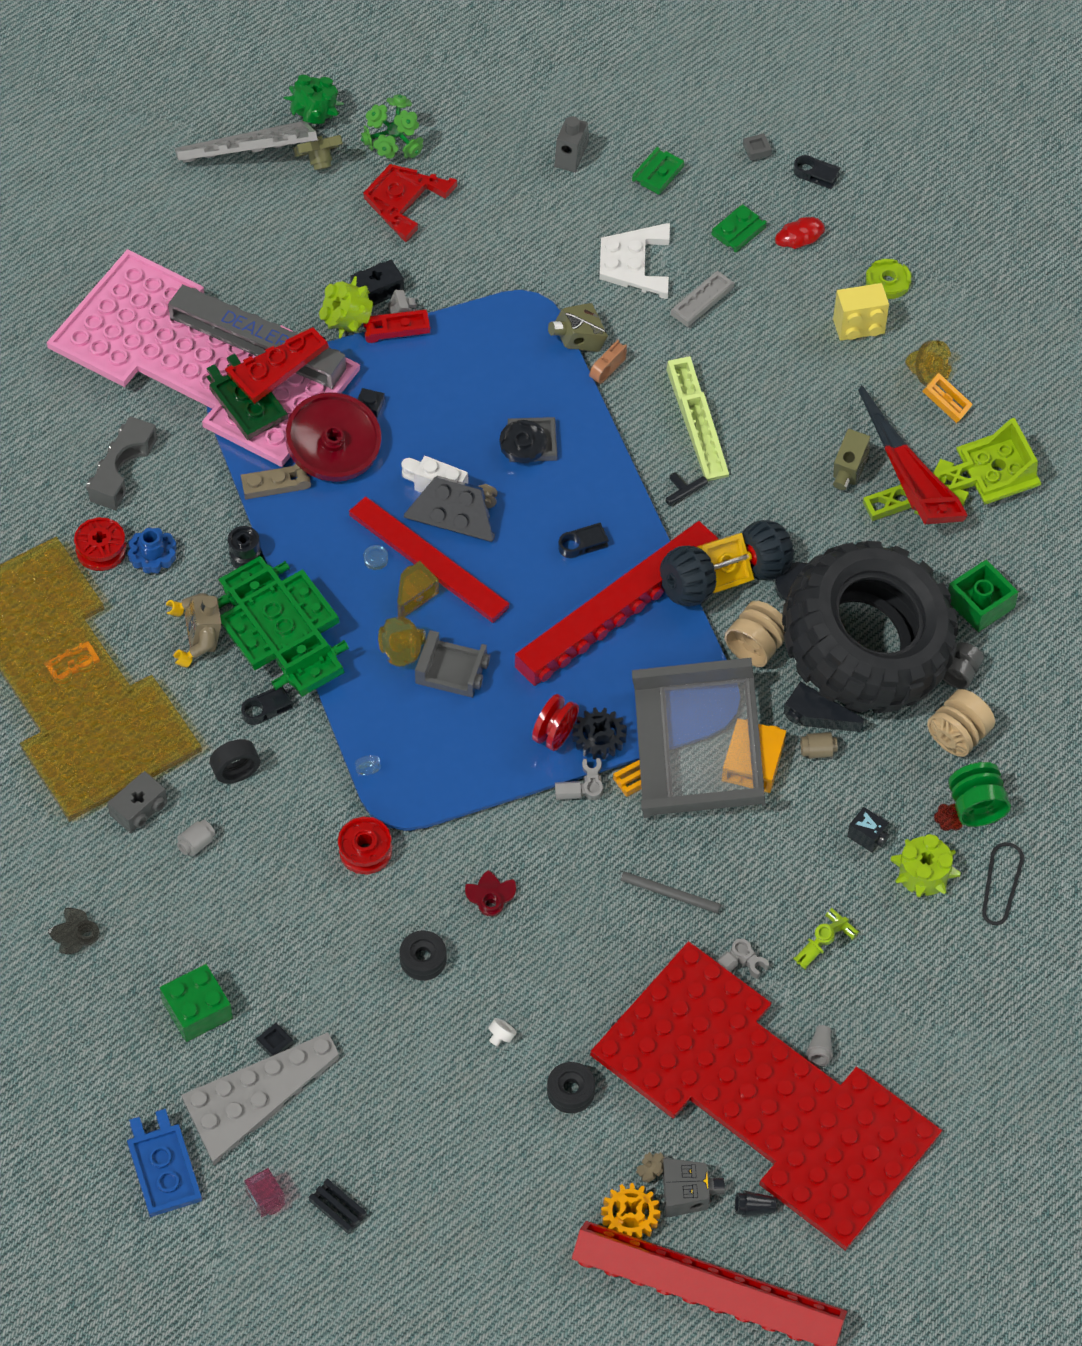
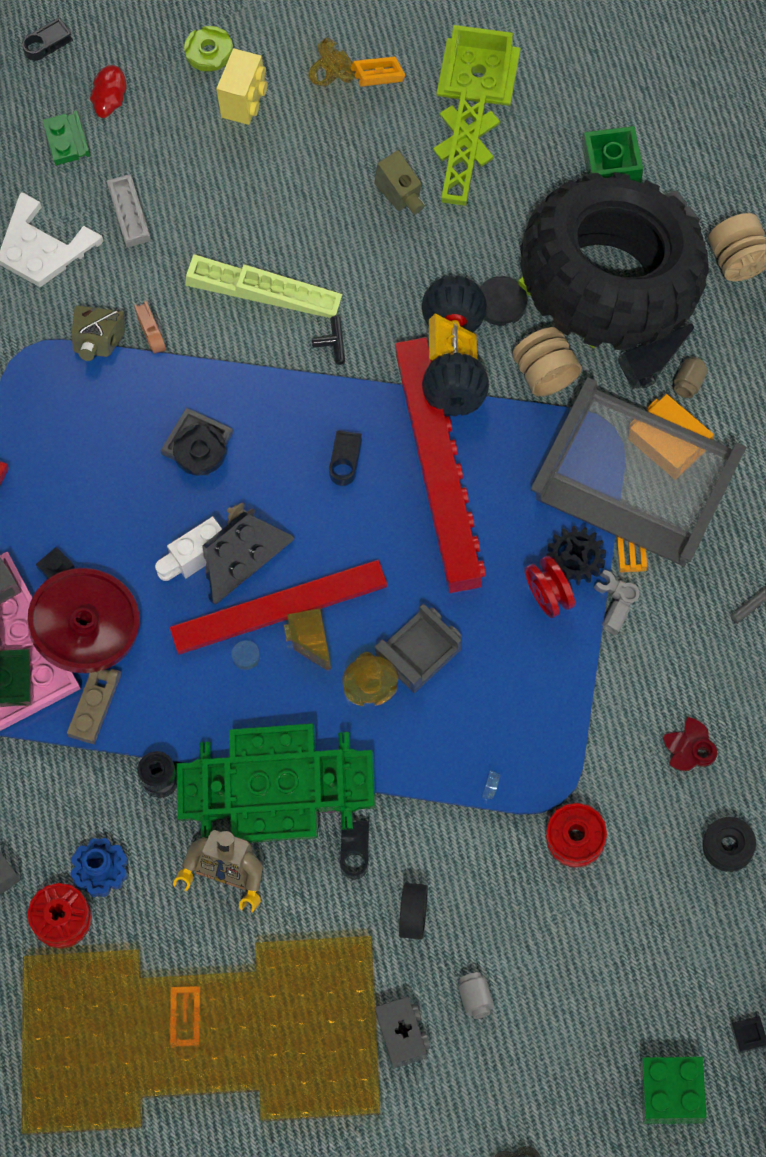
camera: 55 degrees left, 10 degrees up
(922, 488) = (478, 141): red plate -> none

